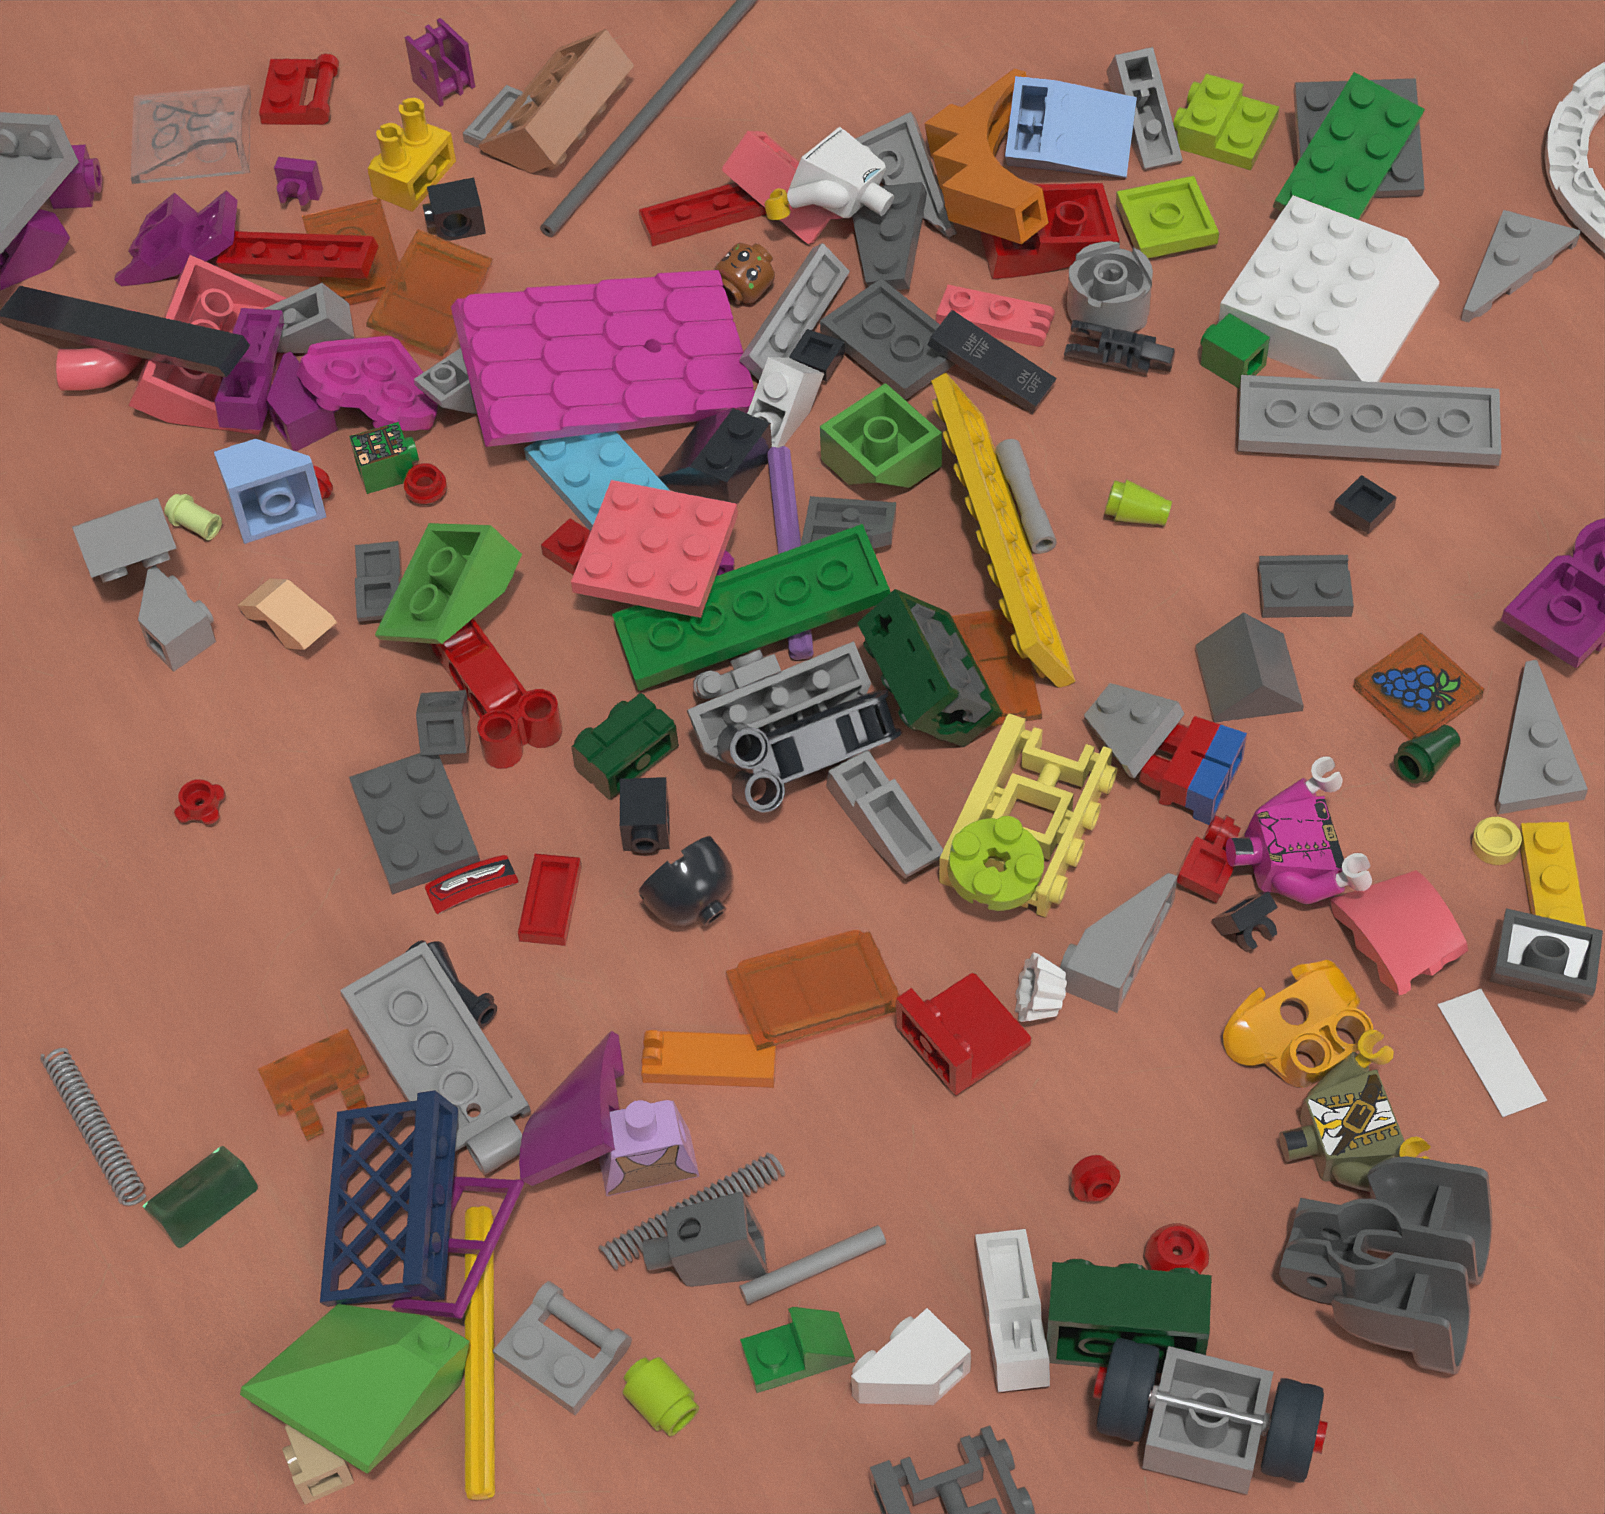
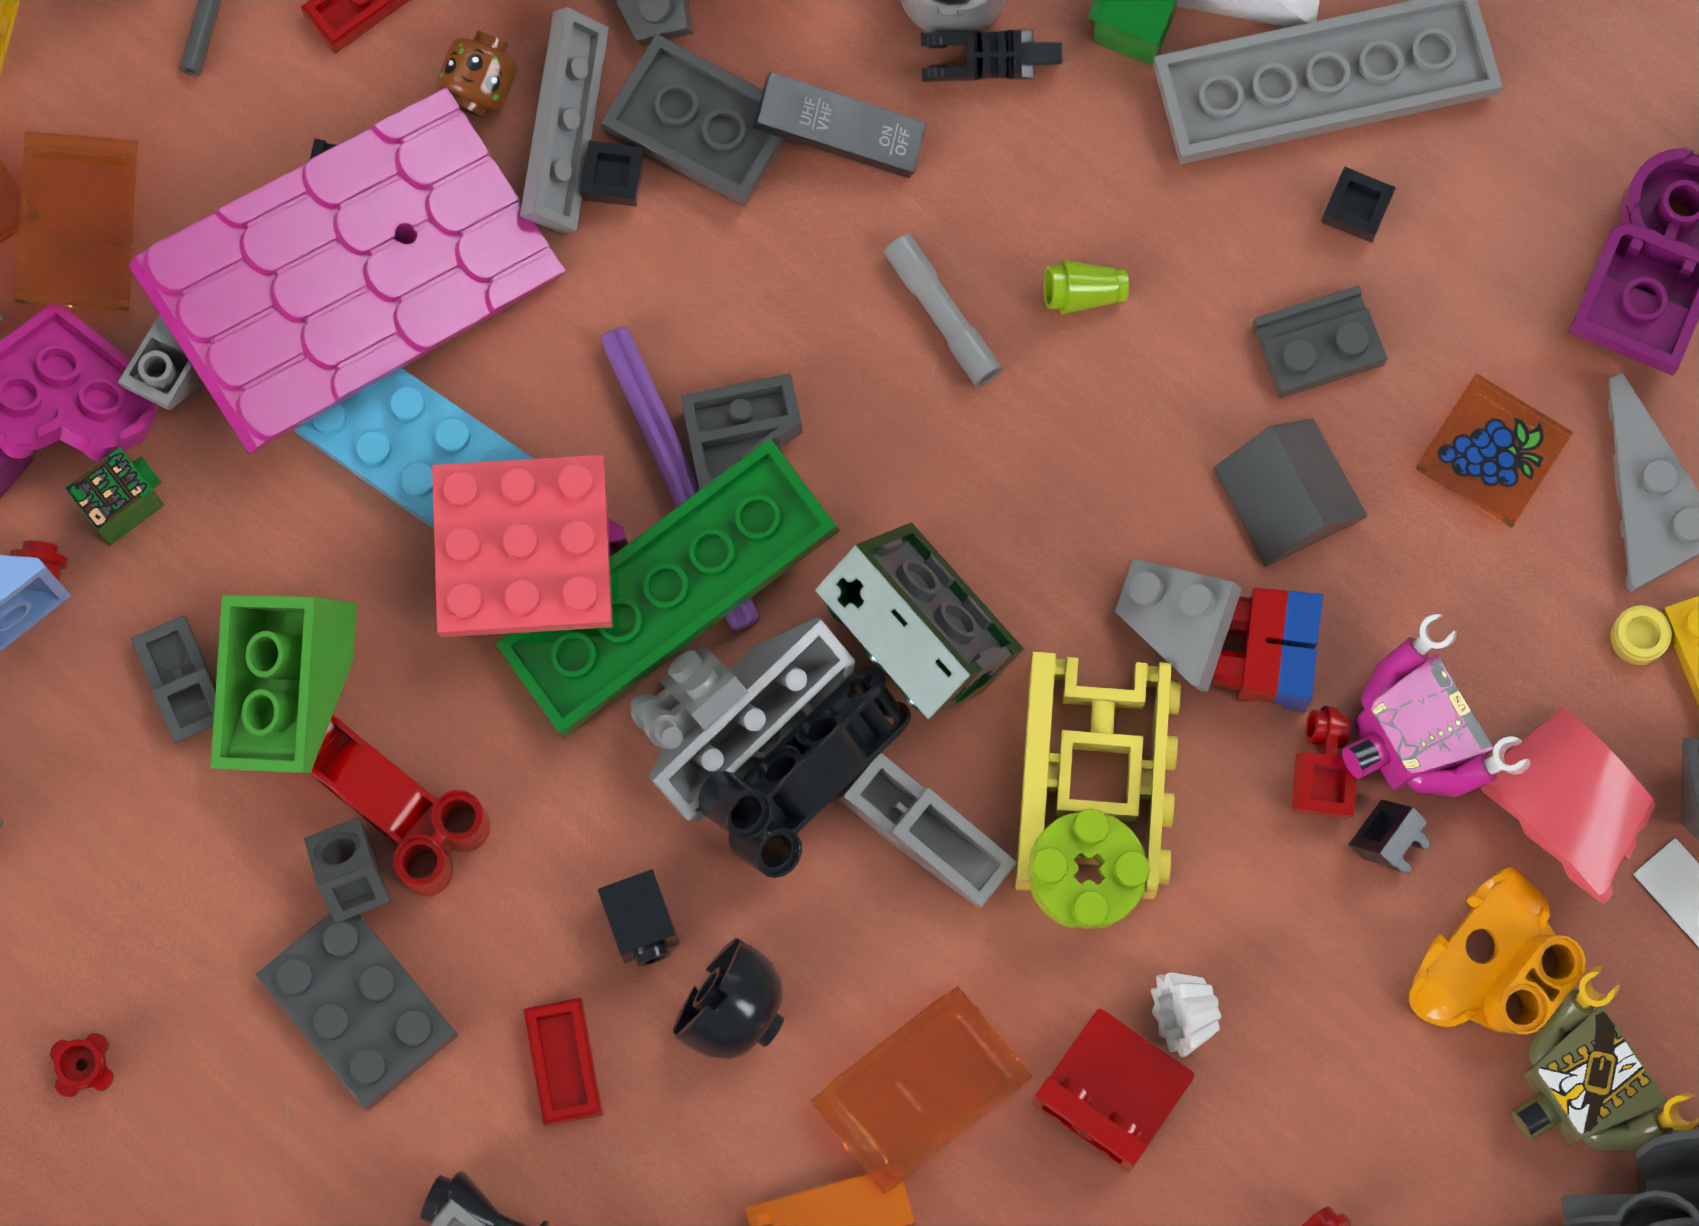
camera: 20 degrees left, 20 degrees up
(289, 613) = (84, 765): light nougat slope -> none
(425, 483) = (172, 504): red plate -> none
(454, 210) = (58, 79): black brick -> none
(470, 882) = (458, 1066): sticker -> none
(566, 545) = (403, 551): red plate -> none
(624, 744) = (578, 826): dark green brick -> none
(720, 457) = (541, 370): black slope -> none
(785, 396) = (594, 263): white slope -> none
(881, 441) = (745, 296): bright green slope -> none
(999, 315) = (815, 43): coral hinge -> none
(1001, 533) = (942, 390): yellow plate -> none
(1004, 670) = (986, 553): clear orange piece -> none
(1117, 945) = (1253, 935): light grey slope -> none
(1424, 755) = (1531, 545): dark green cone -> none

